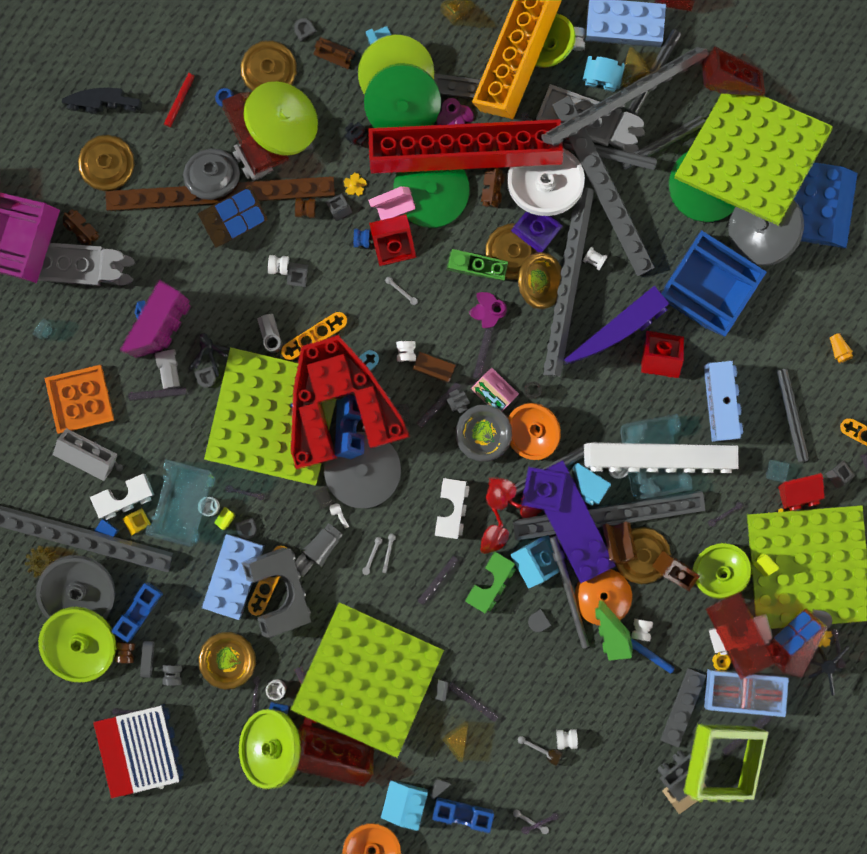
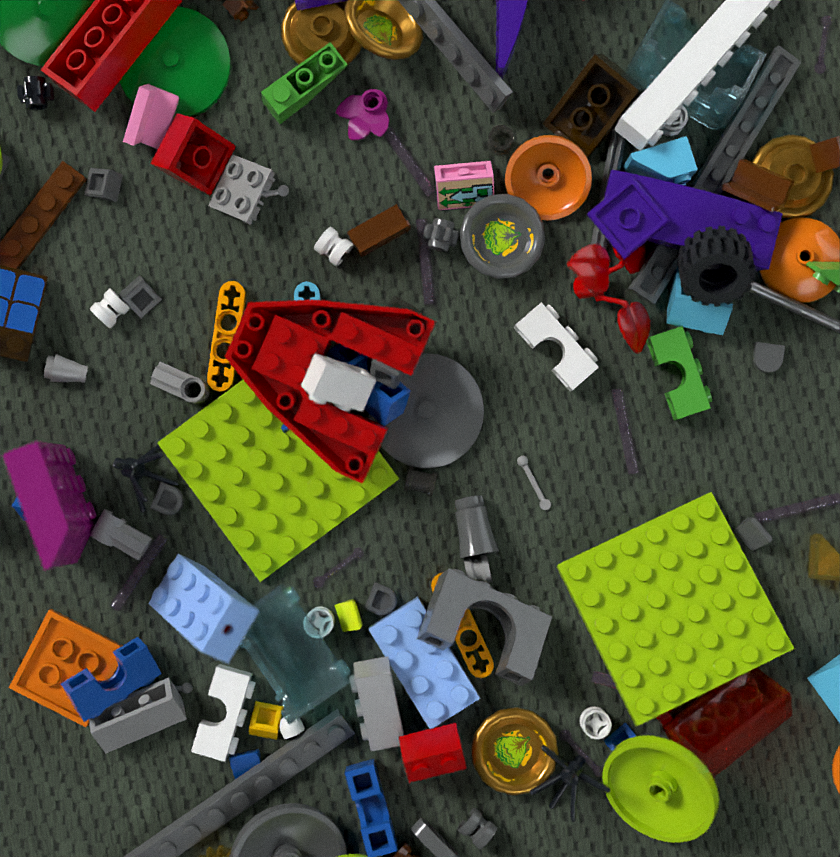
camera: 50 degrees left, 0 degrees up
(106, 433) = (134, 670): none -> blue arch
(141, 537) = (291, 730): none -> white hinge
(166, 442) = (203, 608): none -> light blue brick
(191, 619) = (432, 752): none -> red slope
(192, 570) = (377, 703): none -> light grey brick
(227, 269) = (64, 370): none -> light grey cone
(238, 699) = (570, 775): none -> black plant
(309, 208) = (75, 217): reddish brown wheel -> none
(335, 414) = (338, 383): none -> white brick
(335, 509) = (446, 479): white hand -> none
(354, 185) = (93, 145): yellow plant -> none
(360, 434) = (385, 374): none -> dark grey slope
(361, 238) = (160, 187): blue wheel -> none
(391, 537) = (531, 442): light grey hinge -> none
(395, 280) = (241, 189): none -> light grey hinge
(556, 554) = (719, 284): none -> black tyre
(592, 423) = (594, 104): none -> dark brown slope

